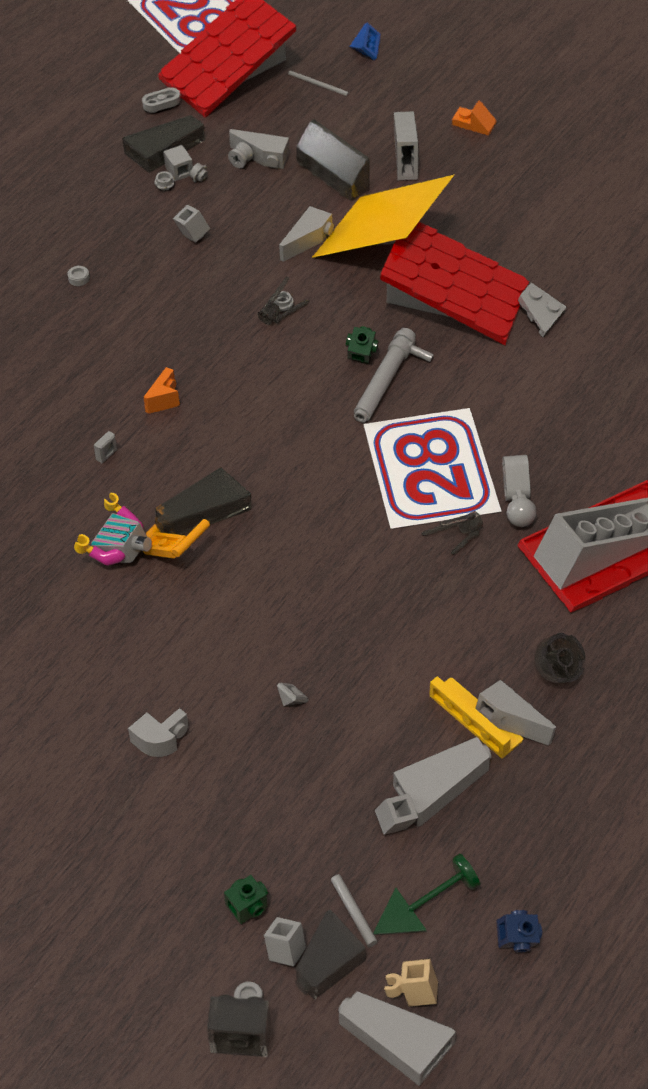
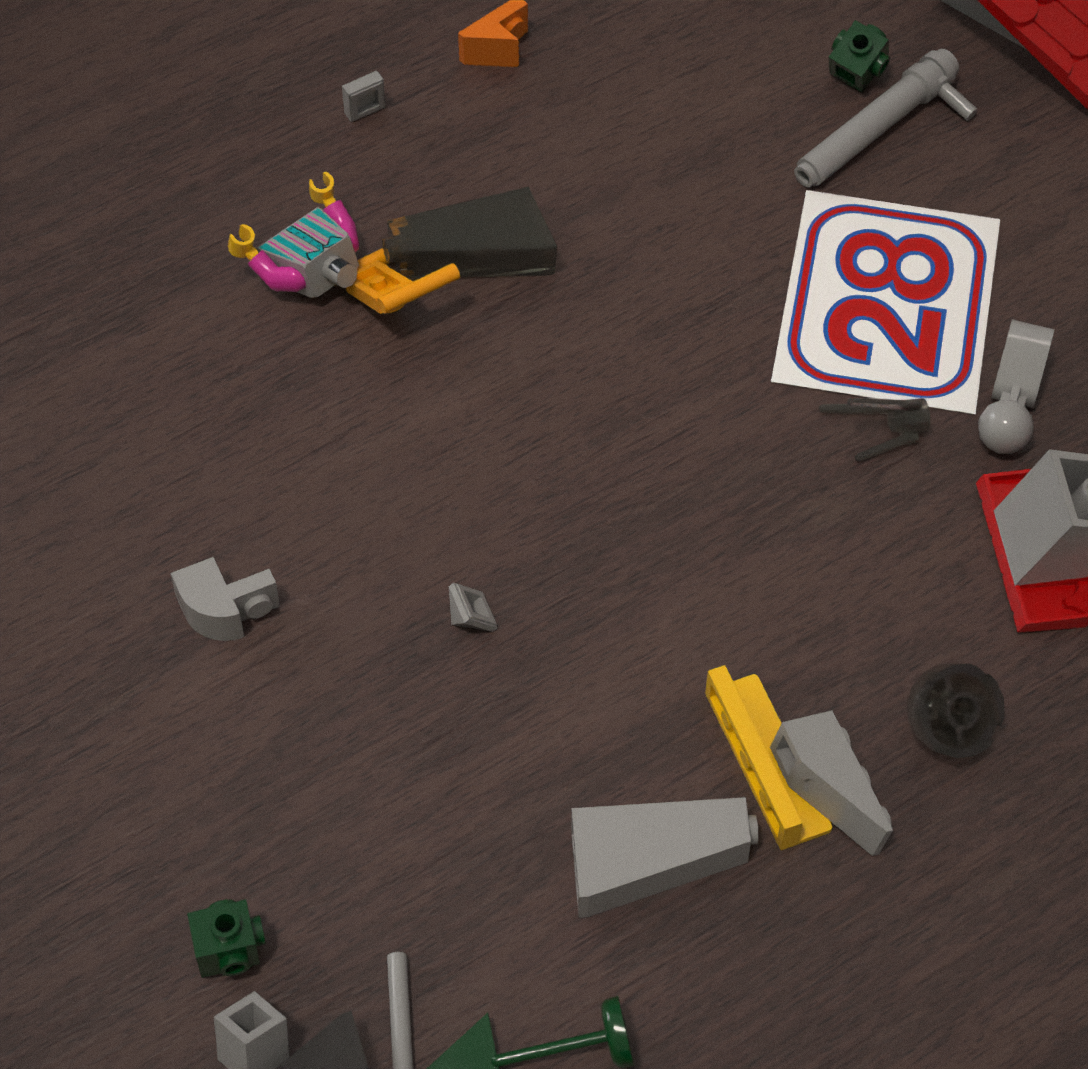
camera: 20 degrees right, 5 degrees up
(396, 813) = (544, 883): light grey brick -> none

